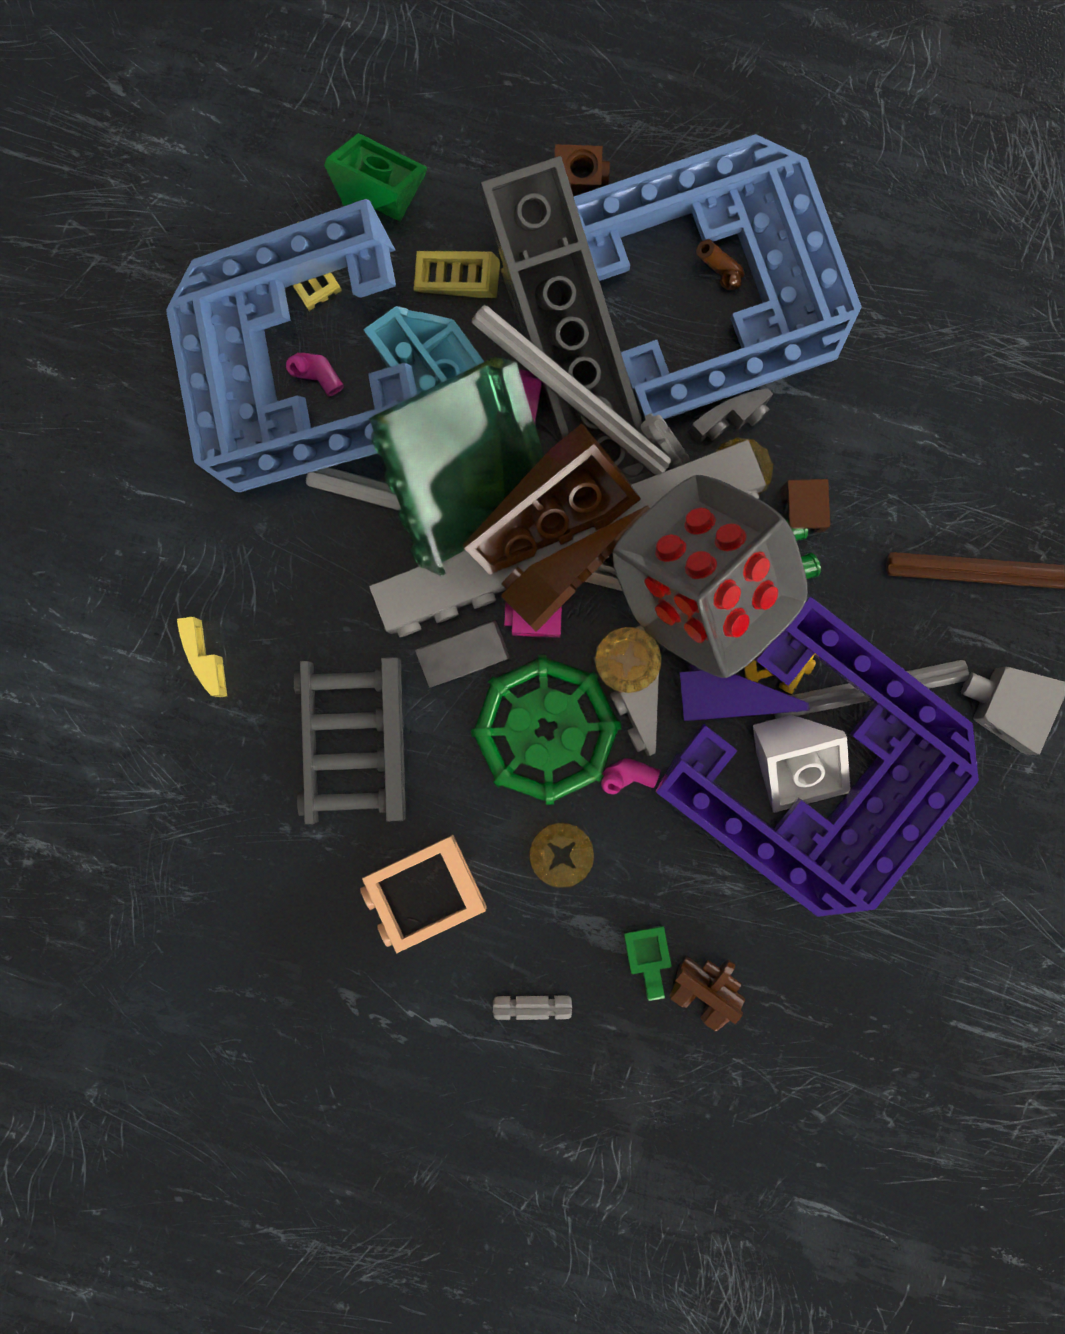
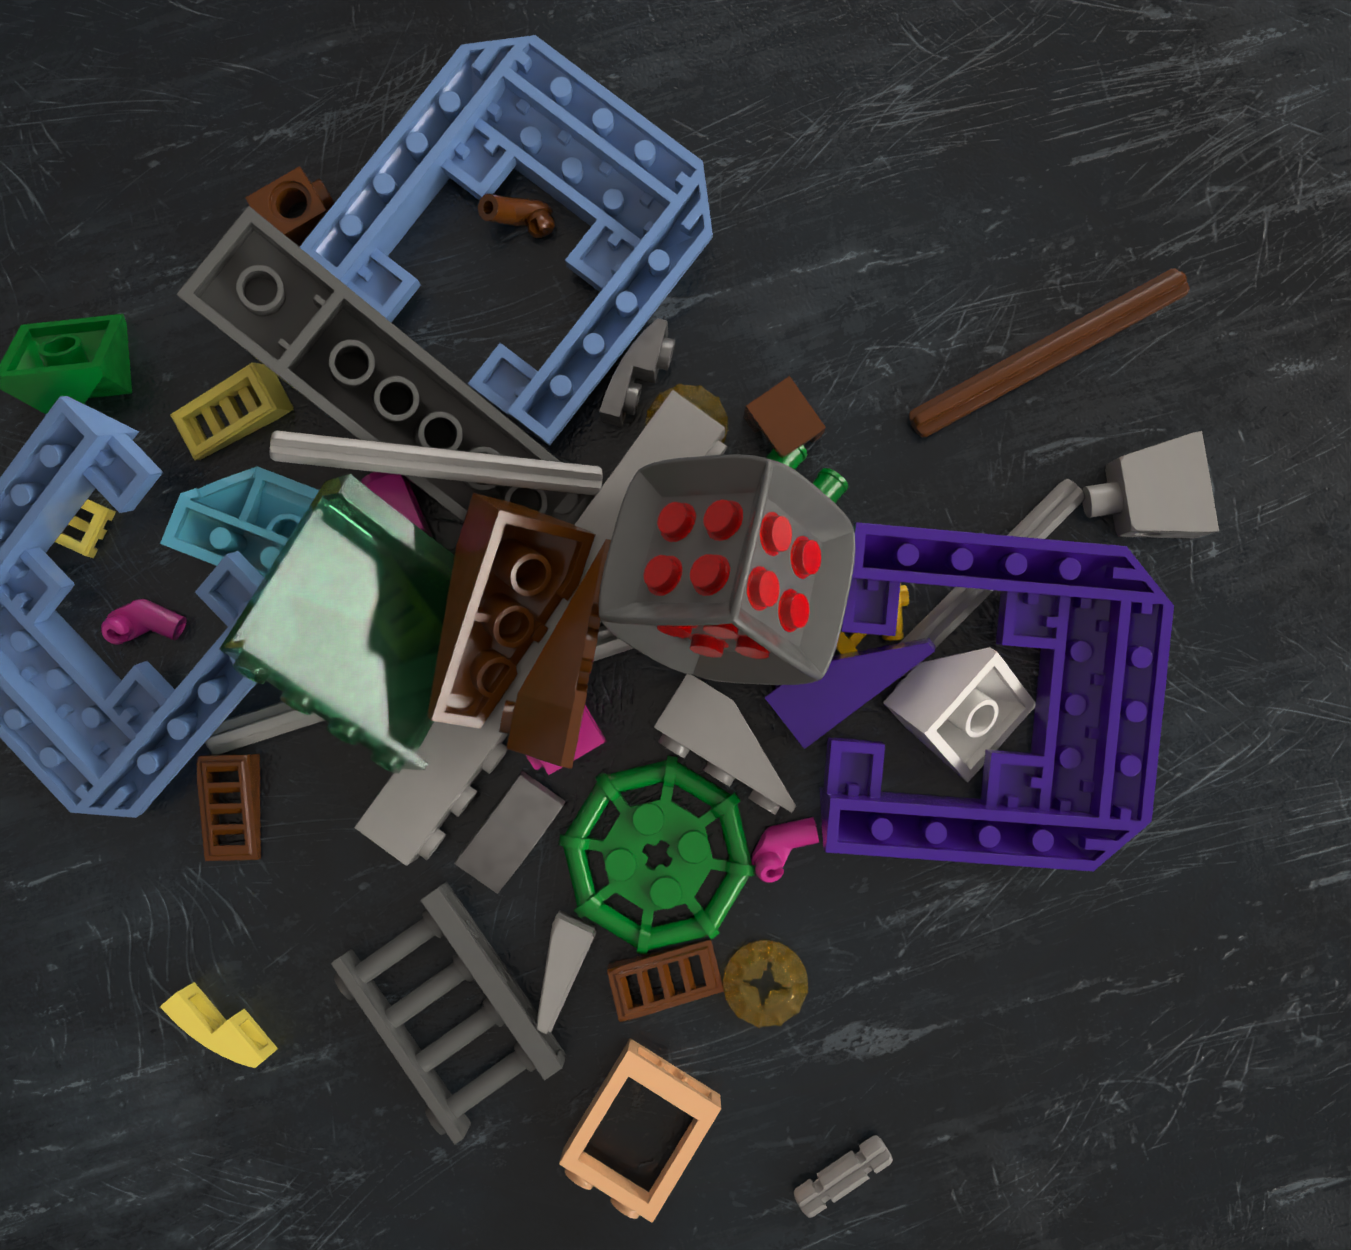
camera: 30 degrees left, 0 degrees up
(291, 503) = (208, 791): none -> reddish brown slope
(448, 753) = (566, 952): none -> light grey slope
(468, 800) = (670, 998): none -> reddish brown slope
(644, 648) = (722, 733): clear yellow gear -> none
(648, 954) = (934, 1035): green plate -> none
(663, 438) = (580, 449): light grey axle -> none
(711, 985) = (1029, 1025): reddish brown hips -> none

